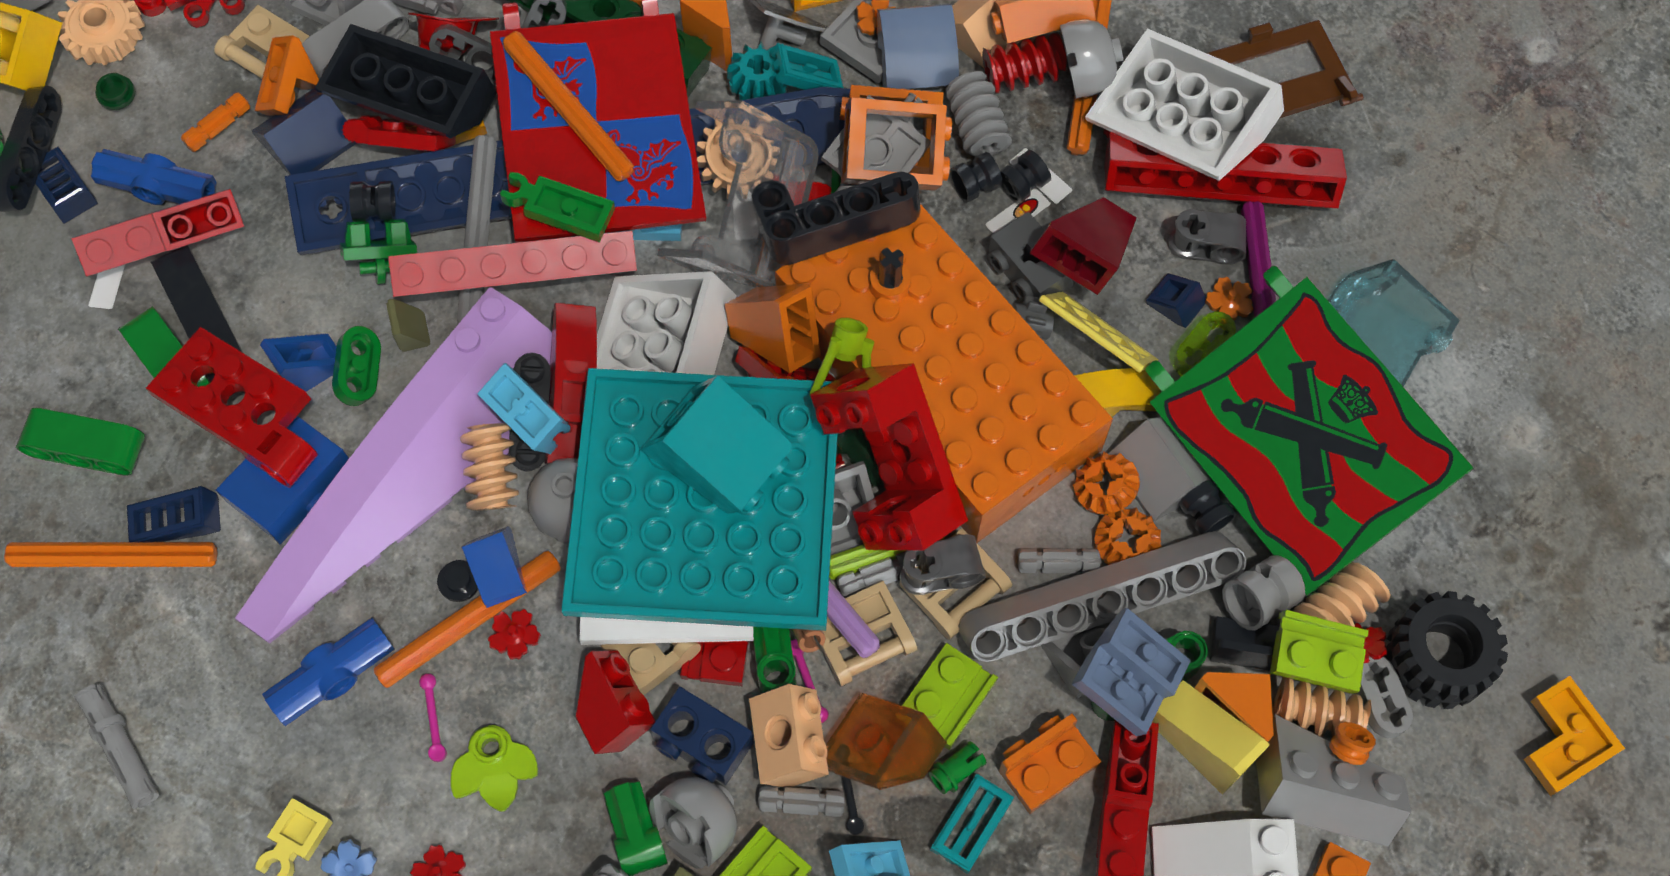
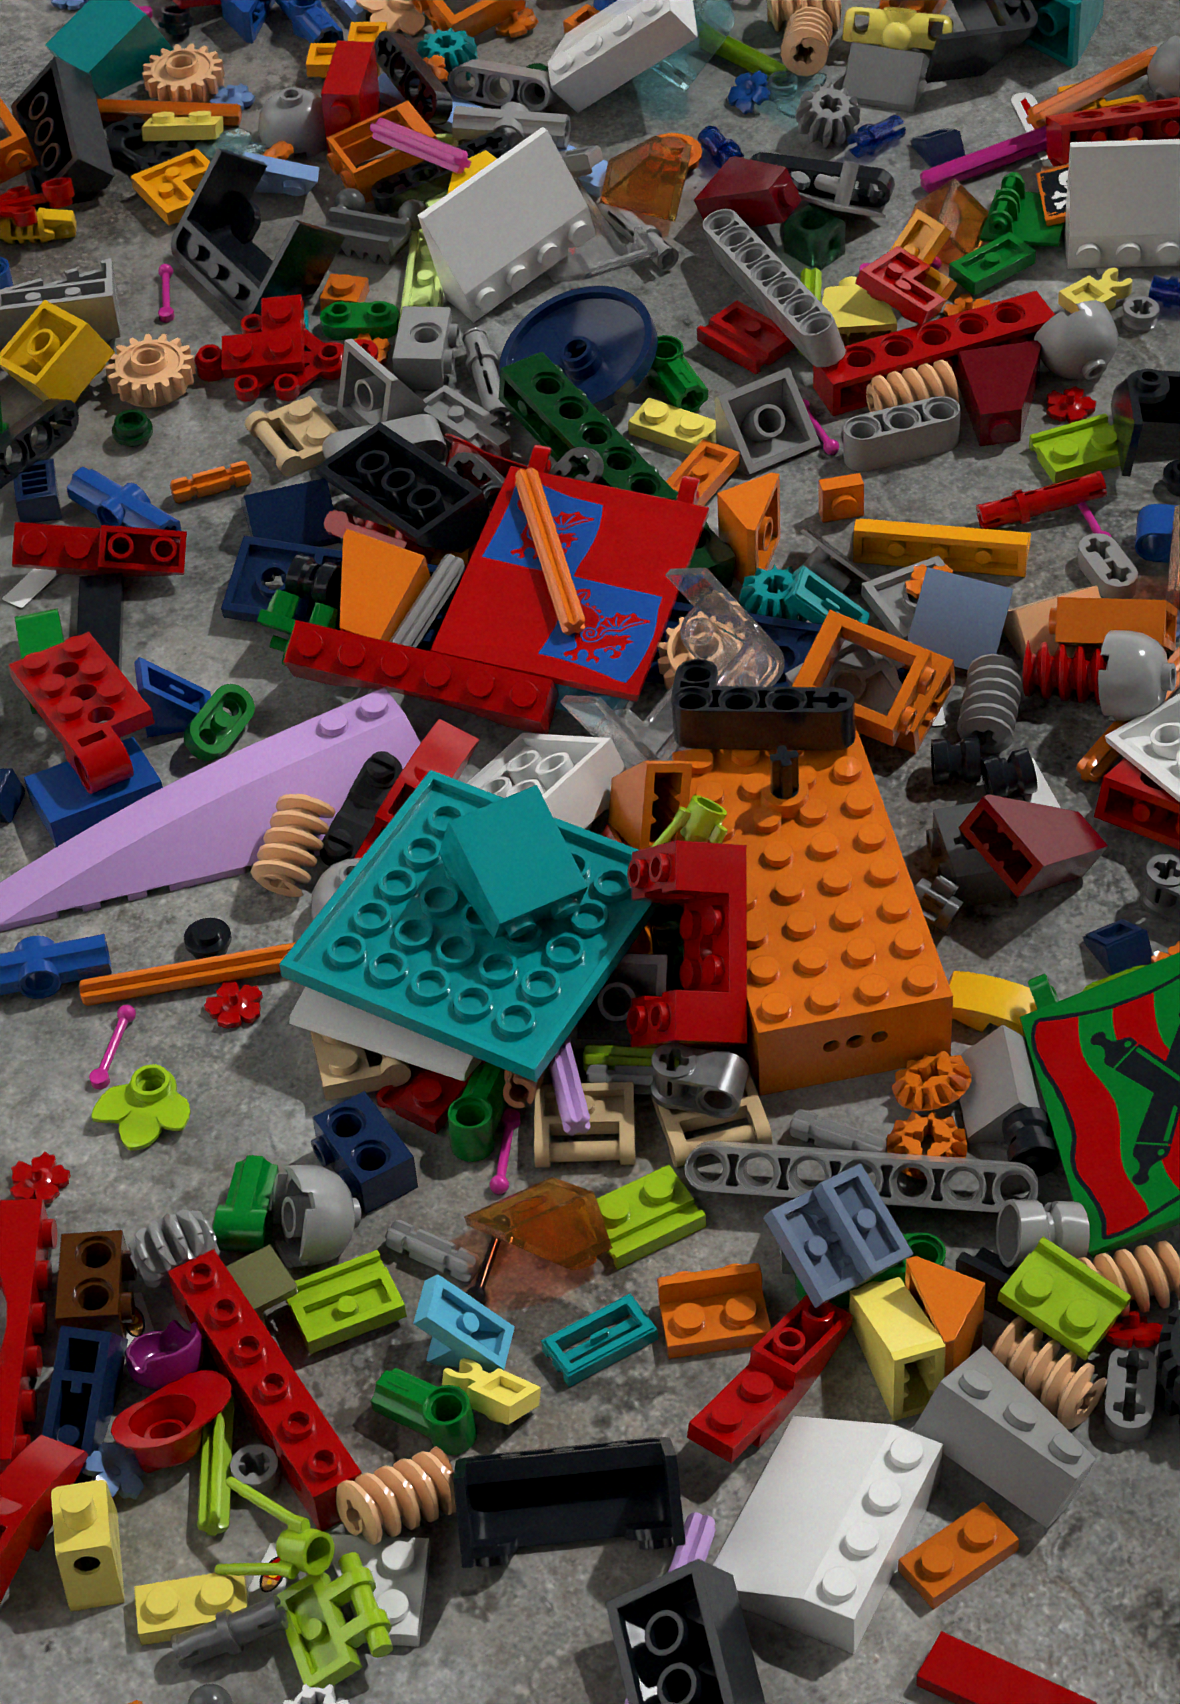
camera: 30 degrees right, 20 degrees down
(285, 69) = (299, 452): orange slope -> none
(407, 325) = (288, 703): olive slope -> none
(434, 192) = (378, 585): none -> orange slope
(495, 566) = (248, 925): blue slope -> none
(523, 409) = (349, 793): medium azure hinge -> none
(561, 206) = (490, 631): green plate -> none
(610, 703) = (287, 1085): red slope -> none
(788, 736) = (449, 1178): light nougat brick -> none
(955, 769) = (611, 1280): green pin -> none
(1098, 330) = (1000, 931): light yellow window -> none
(1352, 743) = (1049, 1393): orange bush -> none

